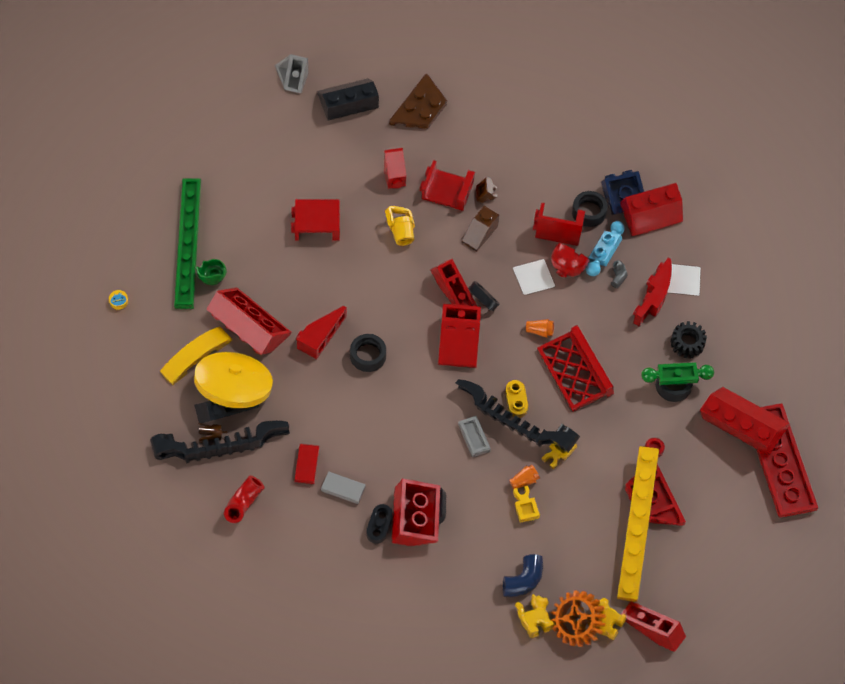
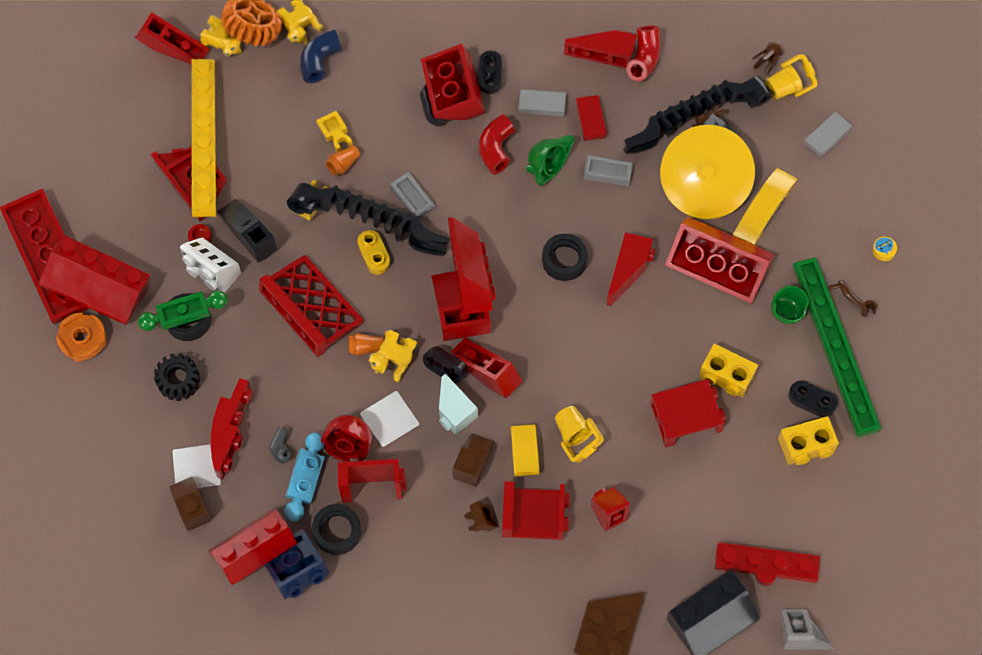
camera: 170 degrees right, 5 degrees up
(119, 399) = (828, 134): none -> light grey tile
(133, 476) = (771, 52): none -> reddish brown piece
(134, 446) = (788, 81): none -> yellow piece
(154, 263) = (851, 297): none -> reddish brown piece
(220, 210) = (812, 399): none -> black plate
(238, 184) = (805, 435): none -> yellow brick
(271, 517) = (607, 47): none -> red slope
(273, 242) = (731, 365): none -> yellow brick
(299, 120) = (767, 563): none -> red hinge
(308, 416) = (608, 170): none -> light grey tile
(357, 434) = (548, 158): none -> green hat
(398, 457) = (490, 144): none -> red cylinder
(441, 227) = (524, 450): none -> yellow slope
(447, 343) = (471, 268): none -> red slope
(484, 265) = (455, 407): none -> light aqua slope
(520, 312) = (396, 353): none -> yellow animal
(615, 435) = (248, 230): none -> black slope
(650, 411) = (209, 264): none -> white slope
(692, 249) = (189, 504): none -> reddish brown slope
(758, 378) = (85, 349): none -> orange plate

